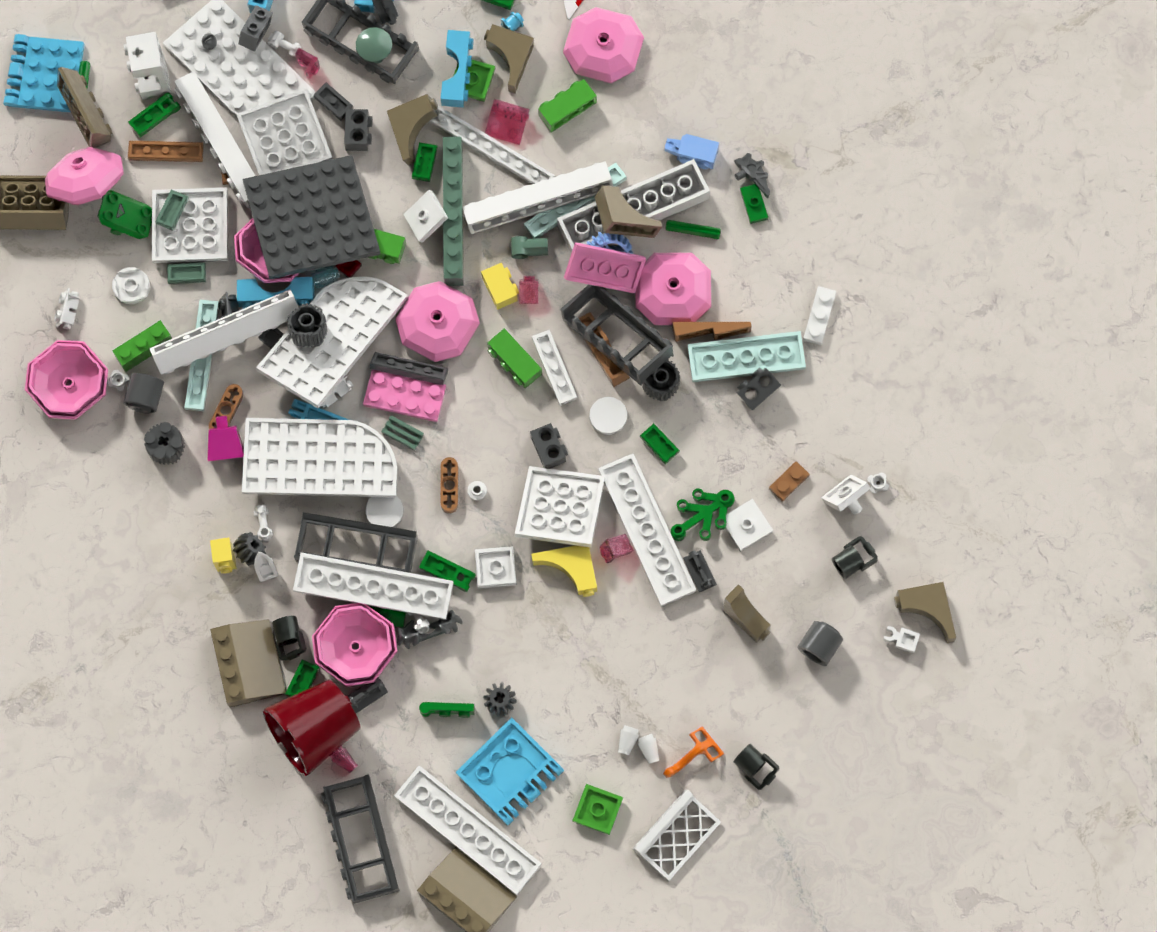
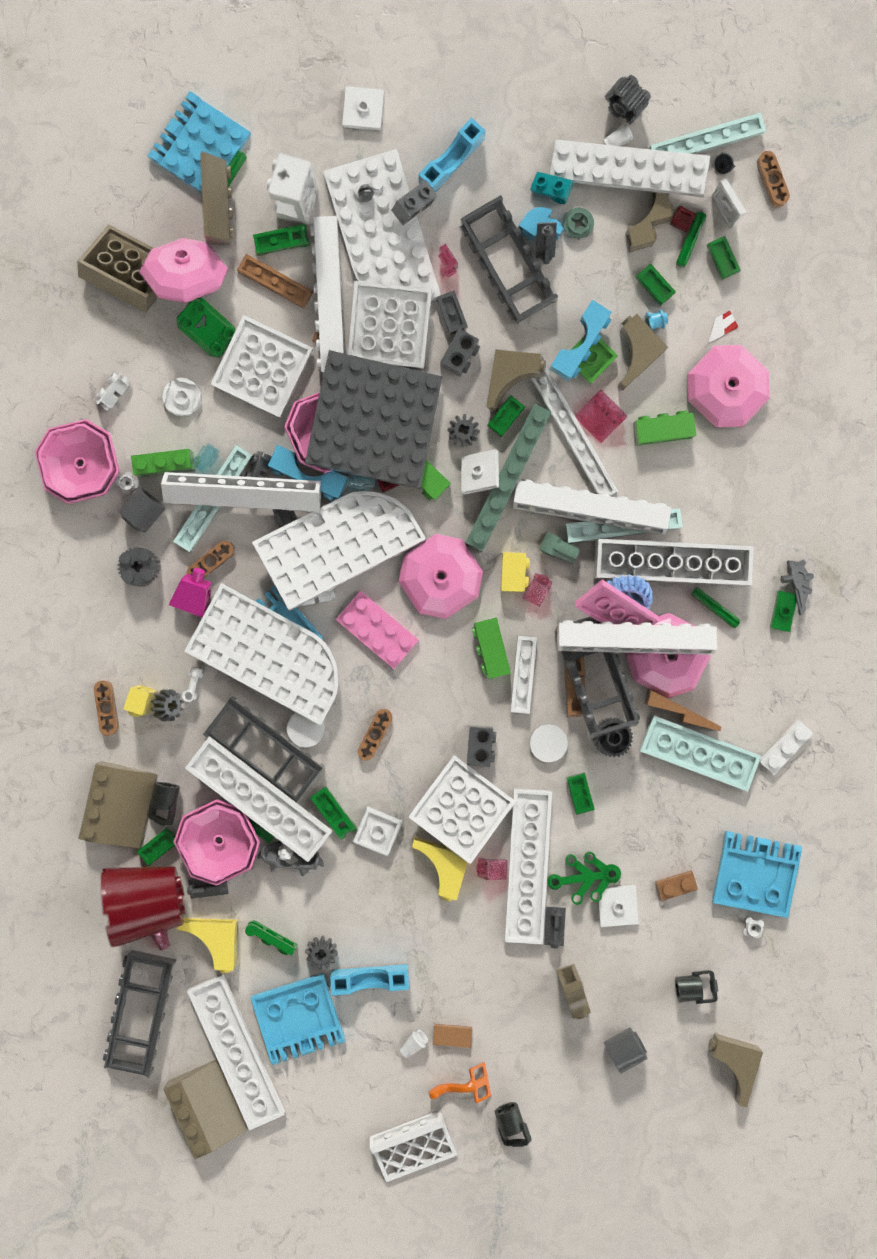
camera: 25 degrees right, 15 degrees up
(172, 210) = (251, 344): sand green tile -> none
(178, 323) = (206, 458): none -> clear light blue brick
(186, 273) = (237, 411): sand green tile -> none
(190, 568) = (112, 721): none -> medium nougat beam
(264, 567) = (173, 729): white plate -> none
(276, 40) = (429, 223): white bar -> none
(307, 326) = (315, 517): dark grey brick -> none
(373, 44) = (516, 277): sand green dish -> none
(394, 197) = (465, 424): none -> dark grey gear
(394, 420) = (366, 677): sand green tile -> none
(399, 732) = (219, 937): none -> light yellow arch
(409, 368) = (392, 607): dark grey tile -> none
(477, 496) = (392, 757): white plate -> none
(548, 704) = (354, 979): none -> medium azure arch
(597, 809) = (356, 1091): bright green plate -> none
(620, 217) = (656, 570): dark tan arch -> none
(633, 281) = (636, 638): none -> white brick
(649, 748) = (429, 1058): white cone -> none
(659, 716) = (452, 1035): none -> medium nougat tile
(694, 147) = (756, 533): light blue hinge -> none
(761, 392) = (695, 796): dark grey brick -> none
(846, 494) = (721, 928): white tile -> none
(854, 438) = (755, 878): none -> medium azure hinge
(905, 639) = (699, 1079): white plate -> none

